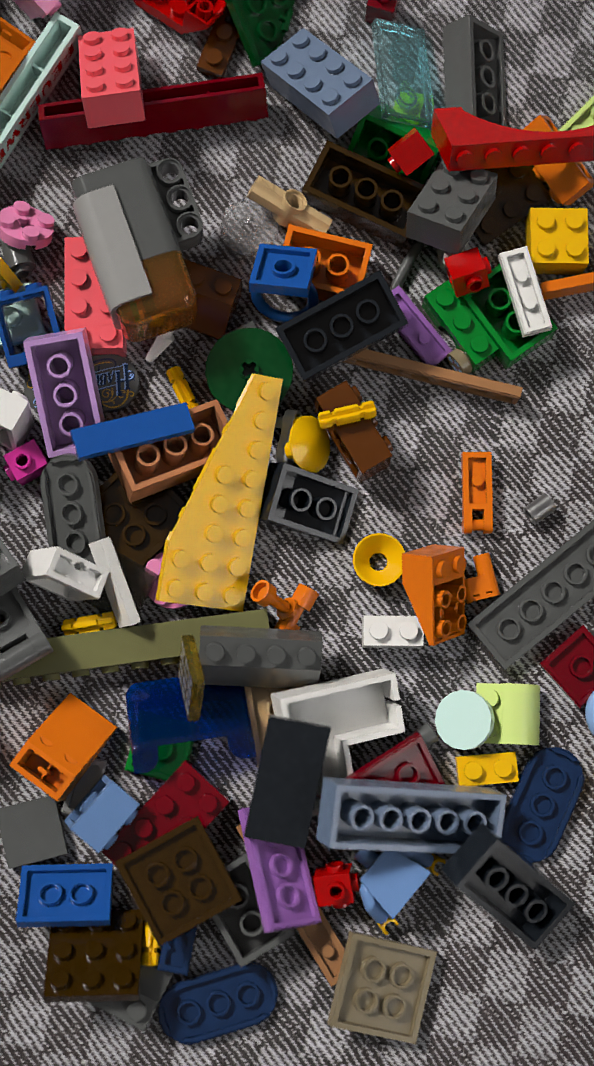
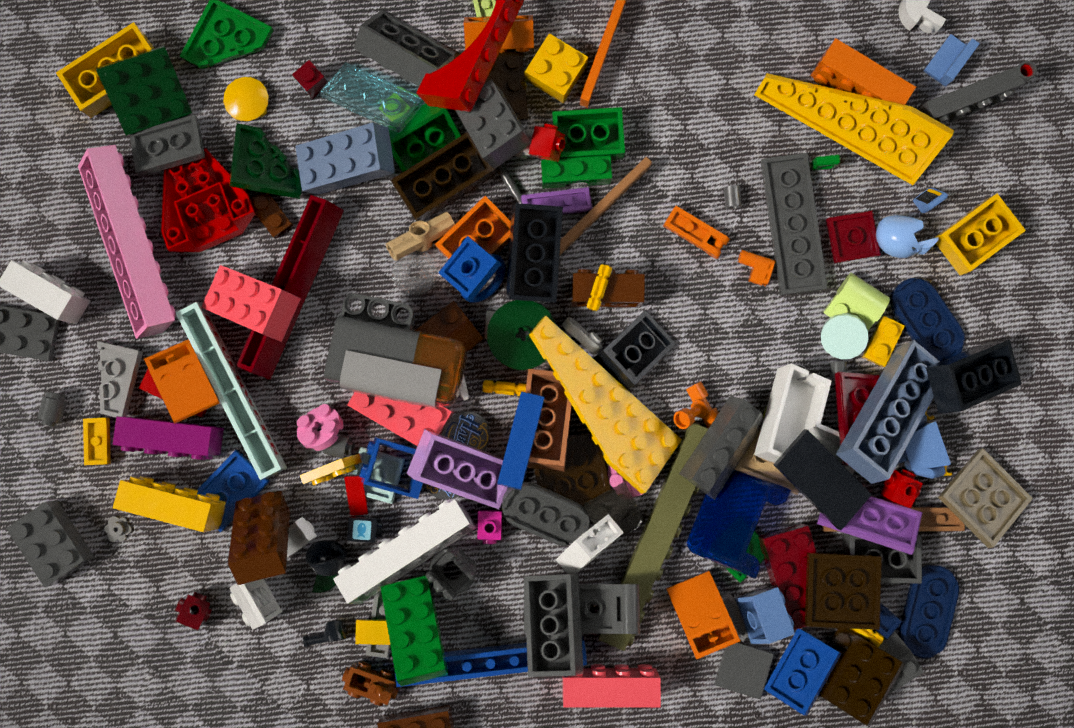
camera: 55 degrees left, 5 degrees up
(89, 623) = (628, 548): yellow axle -> none
(116, 584) = (621, 515): white tile -> none
(191, 677) = (712, 502): clear yellow tile -> none
(308, 444) = (596, 325): yellow dish -> none
(378, 544) = (712, 318): yellow piece -> none
(391, 632) = (757, 347): white brick -> none
(409, 152) = (437, 129): red brick -> none
(437, 590) = (748, 300): orange slope -> none
(459, 361) = (600, 187): dark tan tile -> none
(525, 291) = (583, 113): white tile -> none

